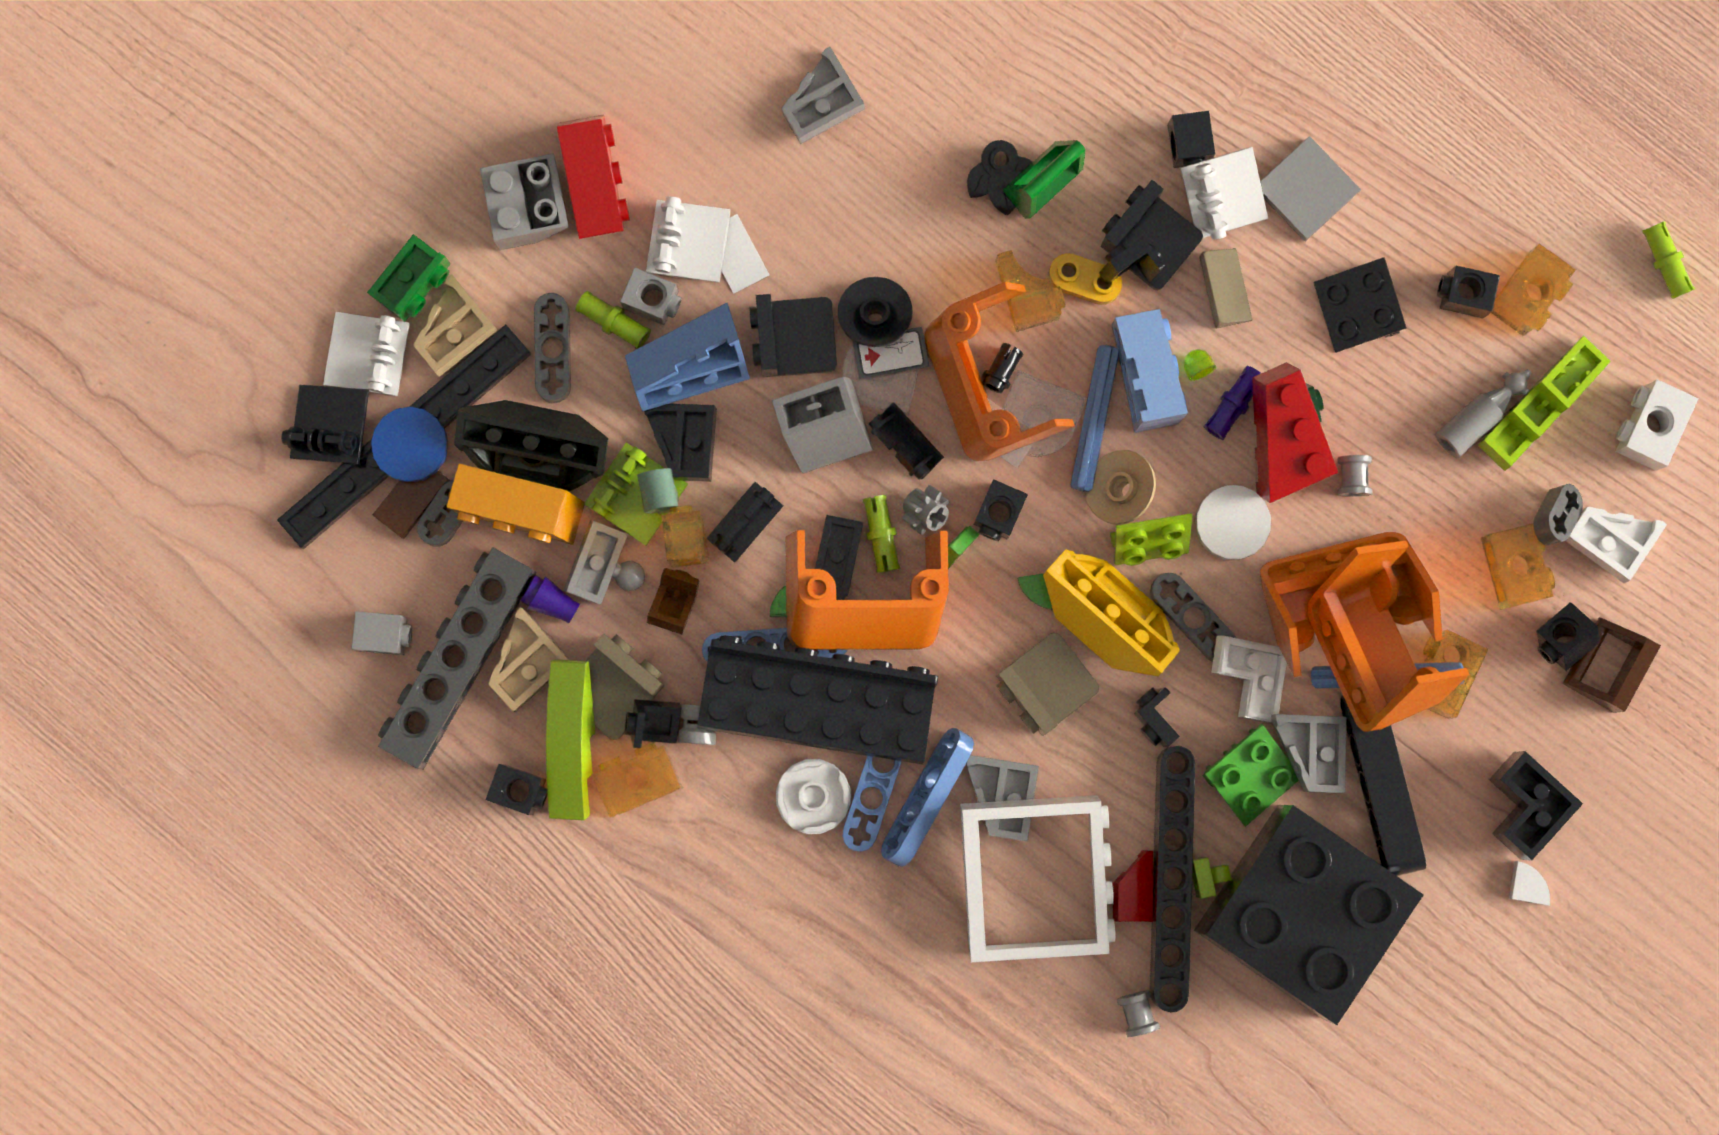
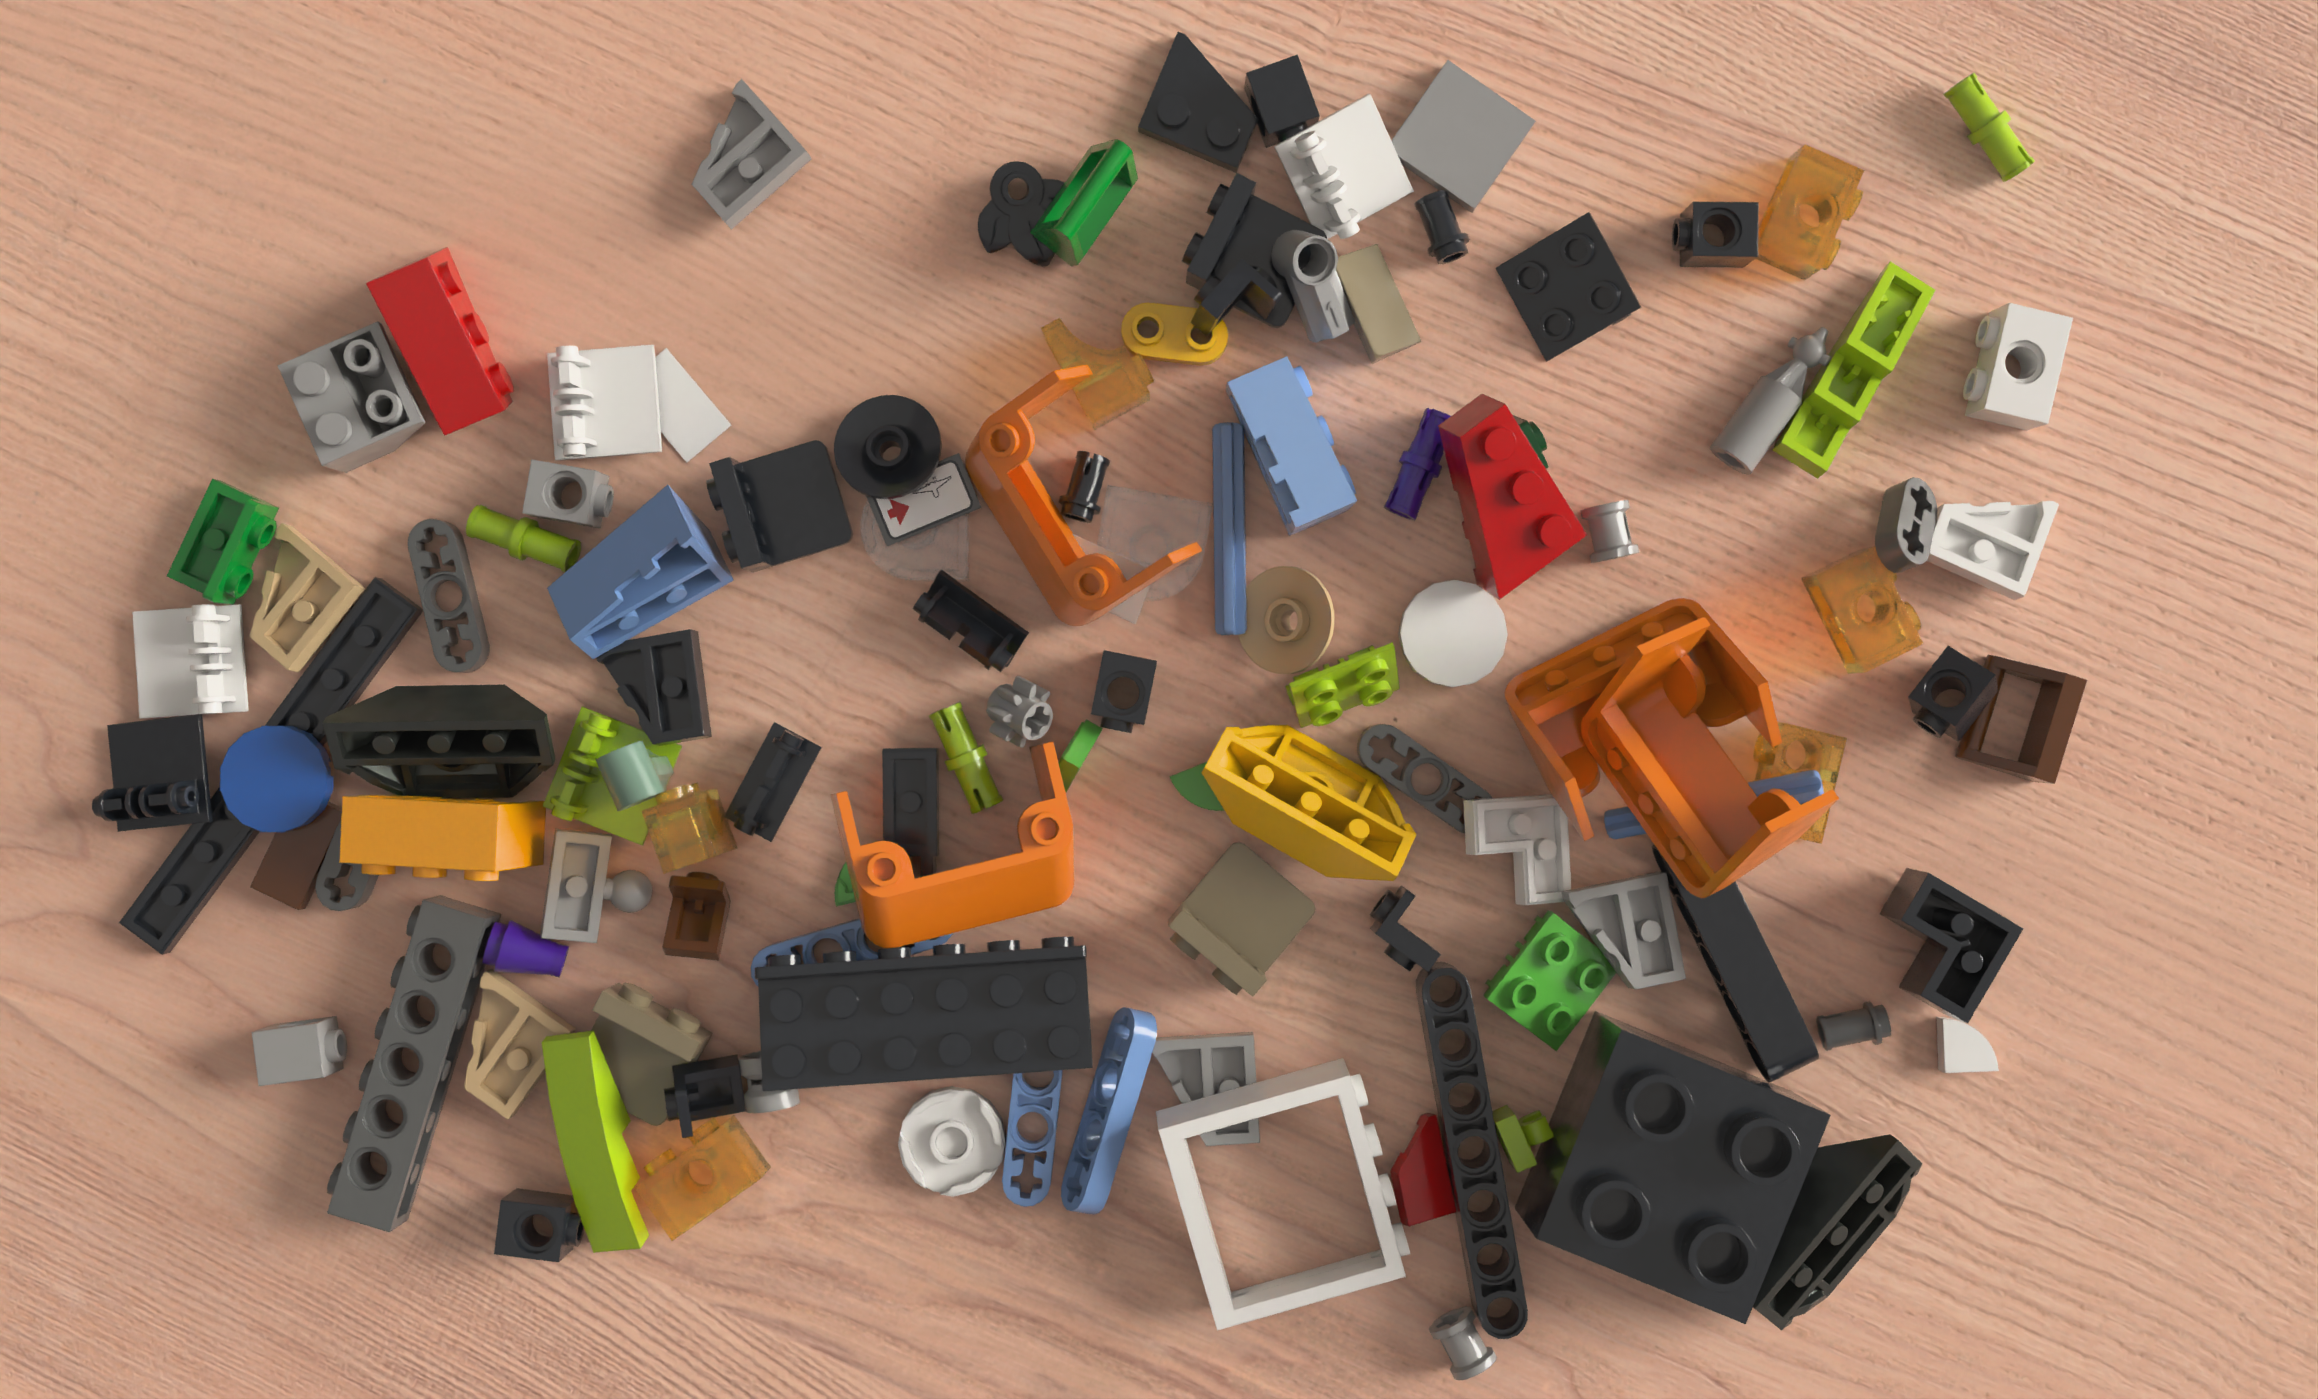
camera: 10 degrees left, 5 degrees up
(823, 424) = (848, 623): light grey slope -> none
(1133, 132) = (1197, 109): none -> black wing
(1187, 268) = (1316, 286): none -> light grey piece
(1198, 364) = (1358, 421): clear neon green hinge -> none
(1282, 247) = (1442, 227): none -> black pin
(1412, 983) = (1837, 1217): none -> pearl dark grey wedge
(1455, 853) = (1854, 1026): none -> dark grey pin

